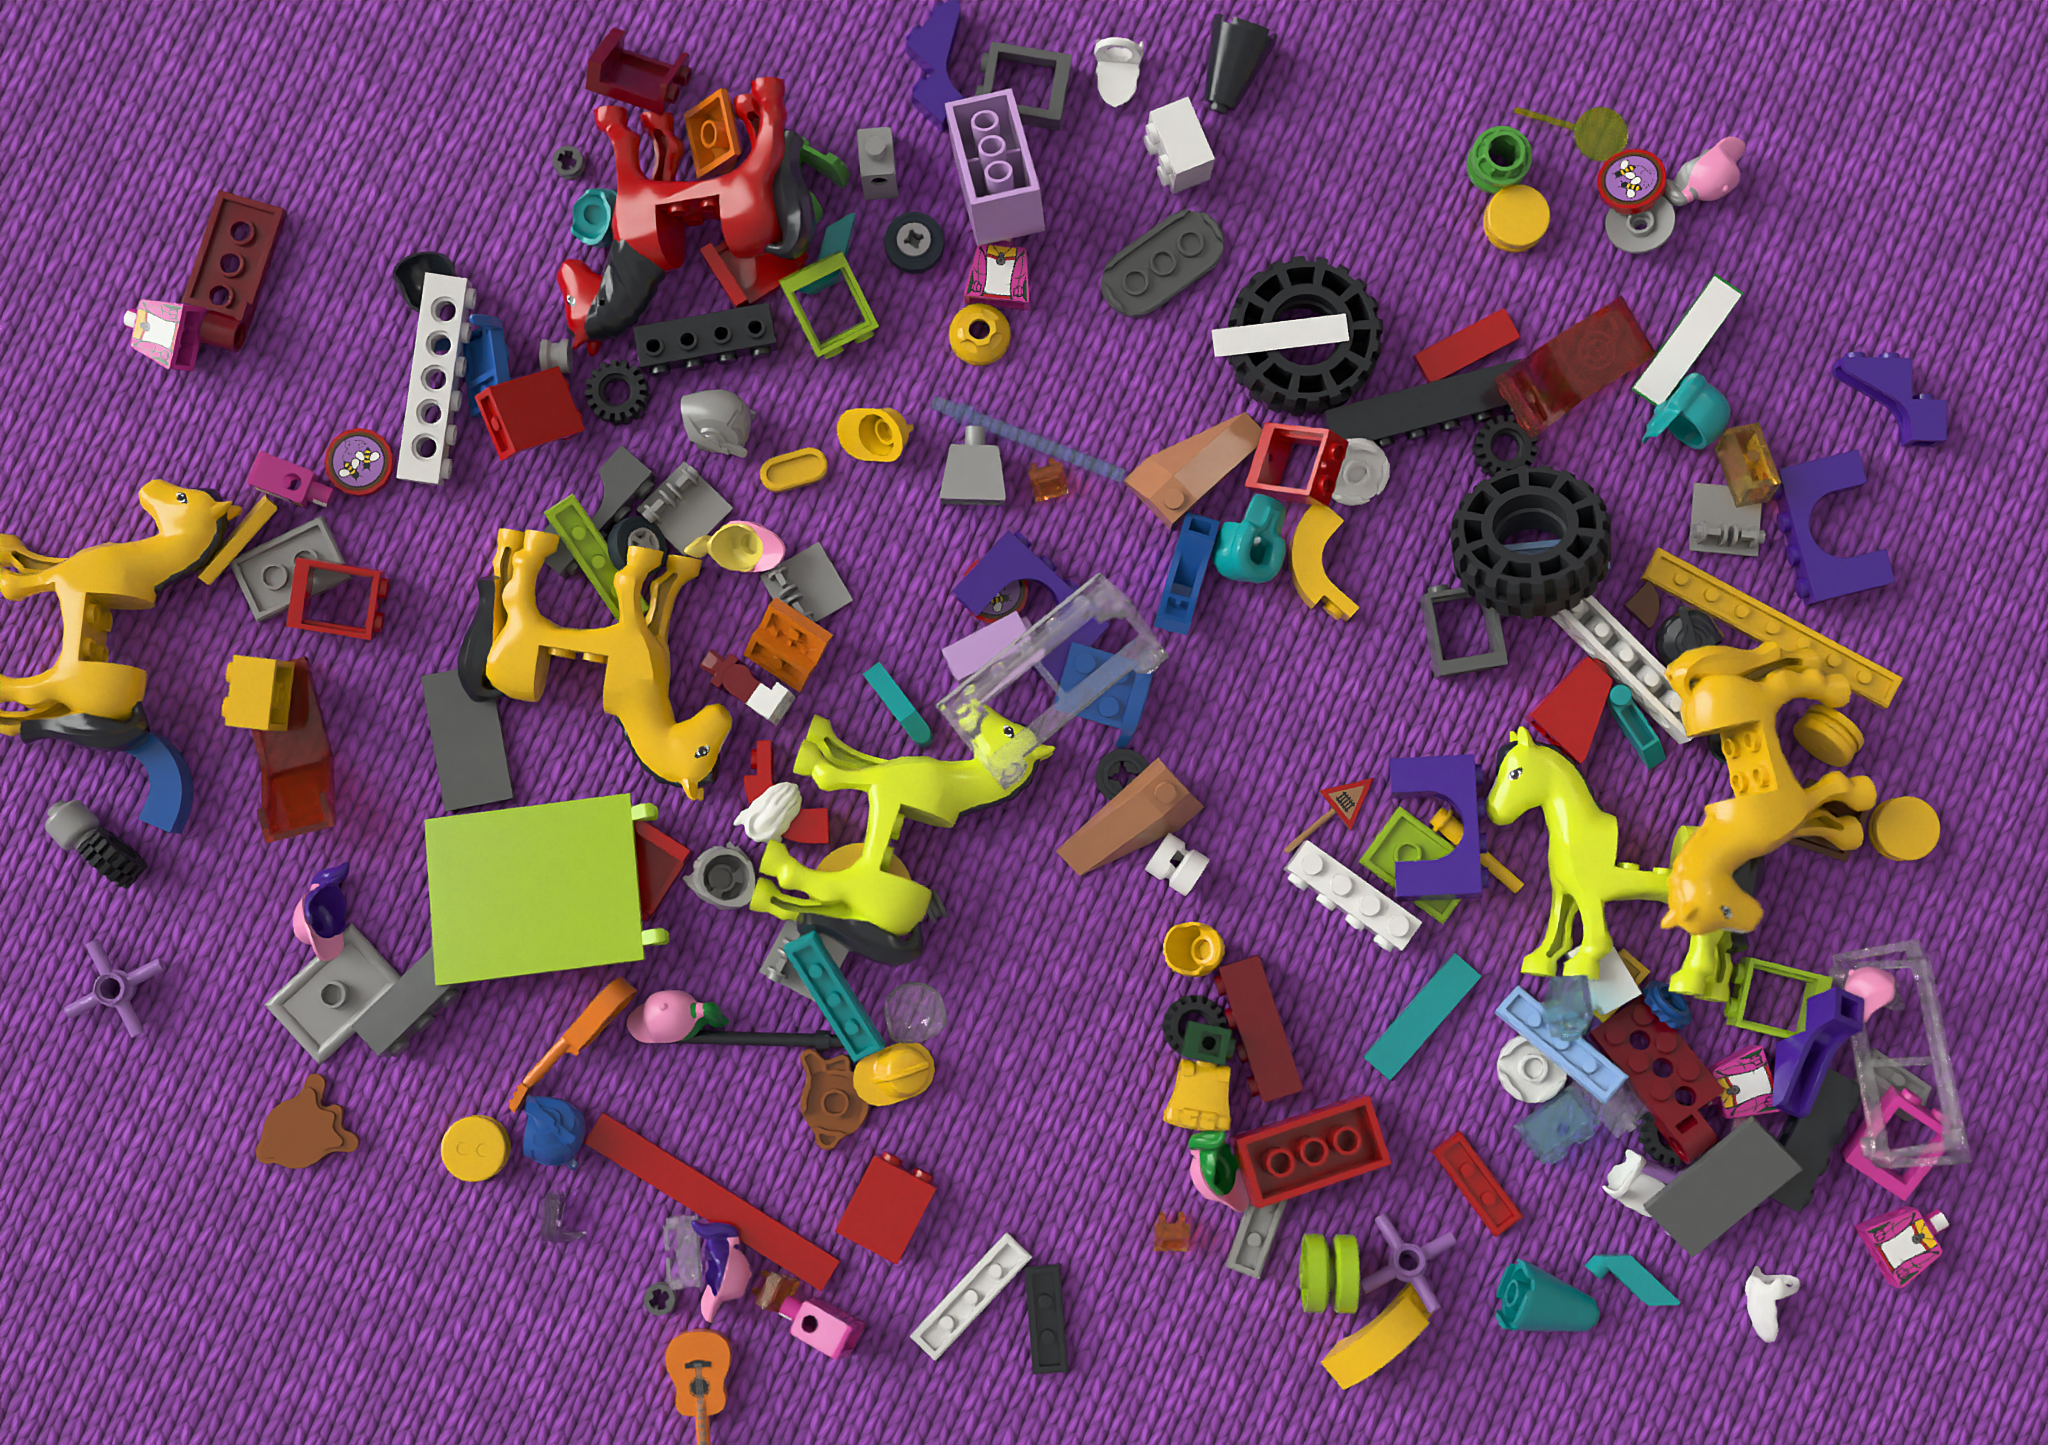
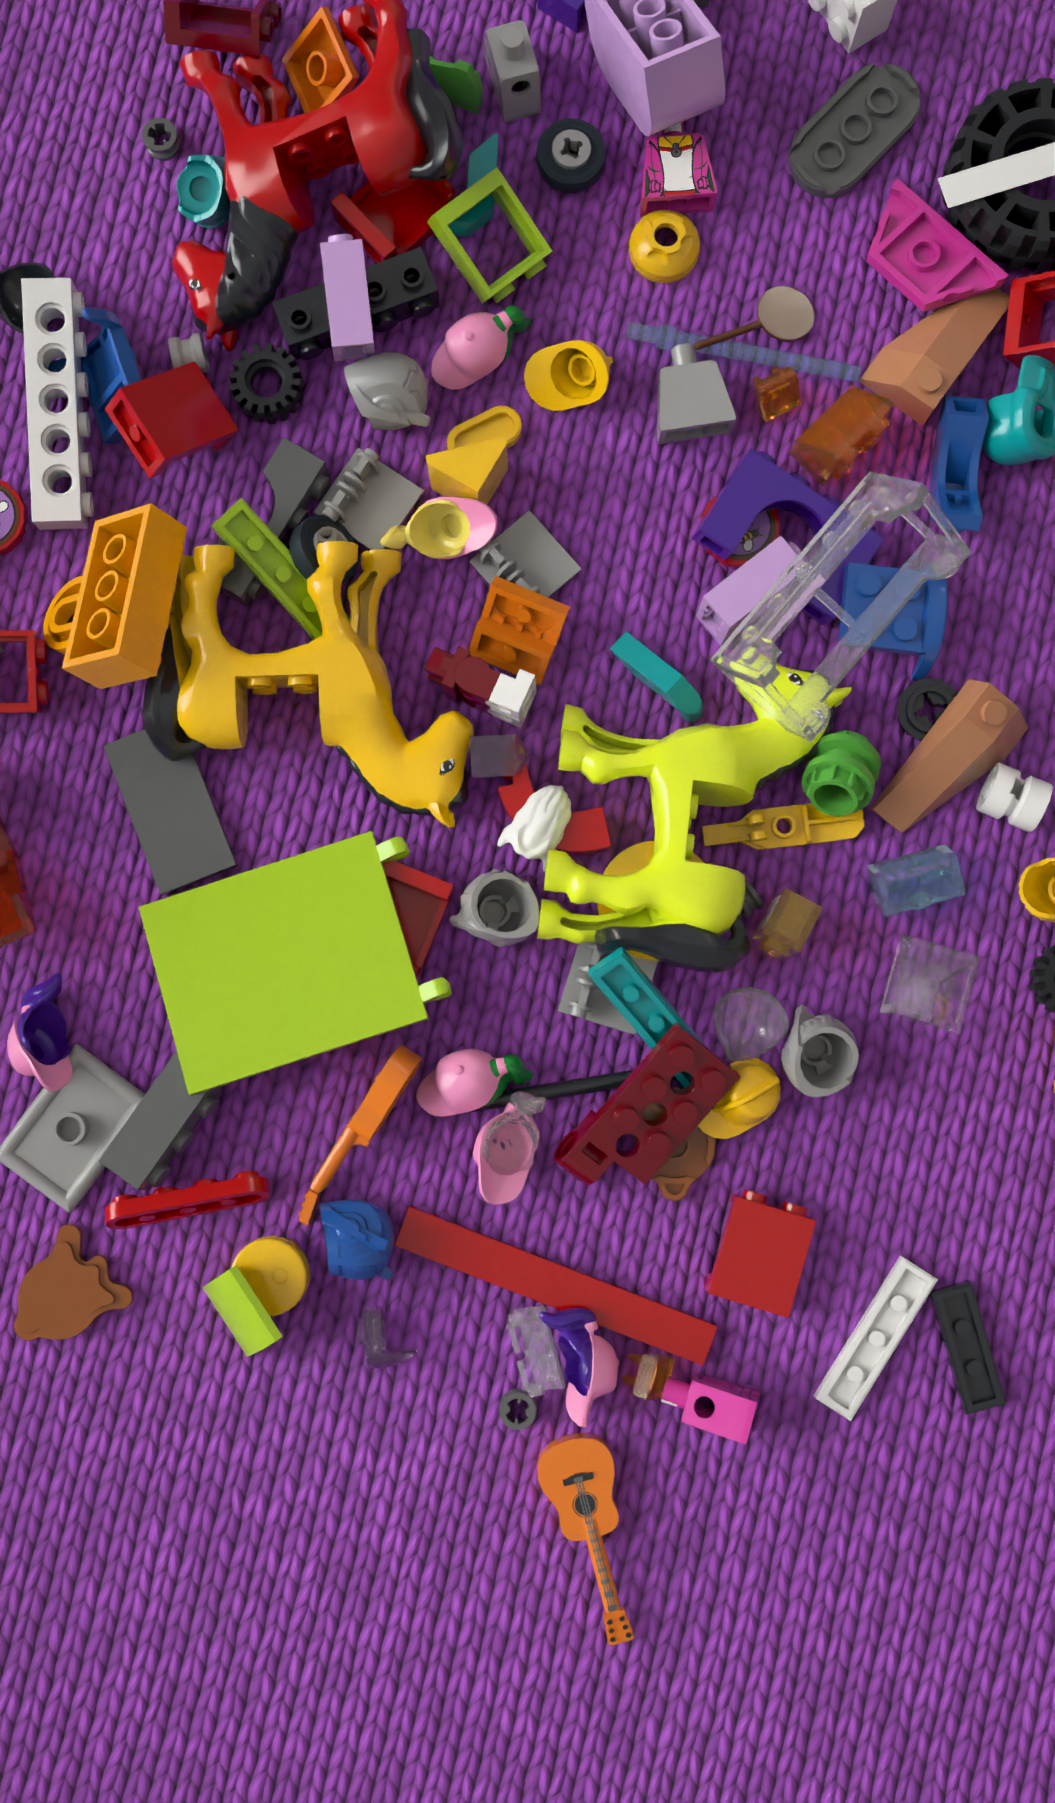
camera: 10 degrees left, 0 degrees up
(405, 1072) = (174, 1203): none -> red plate
(445, 1173) = (242, 1311): none -> lime slope
(455, 561) = (119, 599): none -> light orange brick
(692, 344) = (347, 297): none -> lavender window
(692, 1080) = (507, 1148): none -> clear hair
(746, 749) = (497, 755): none -> clear purple plate
(762, 1090) = (592, 1145): none -> dark red hinge
(773, 505) = (469, 470): none -> yellow slope
(801, 394) = (476, 346): none -> bright pink hair
(960, 937) = (786, 924): none -> clear yellow brick
(968, 1036) = (823, 1039): none -> light grey helmet
(1003, 854) = (806, 827): none -> yellow piece
(1033, 818) = (842, 774): none -> bright green piece
(1067, 412) = (780, 313): none -> piece
(1077, 1009) = (930, 984): none -> clear slope
(1078, 919) = (916, 880): none -> clear light blue brick
(1092, 528) = (842, 434): none -> clear orange slope
(1200, 385) = (927, 255): none -> dark pink wing

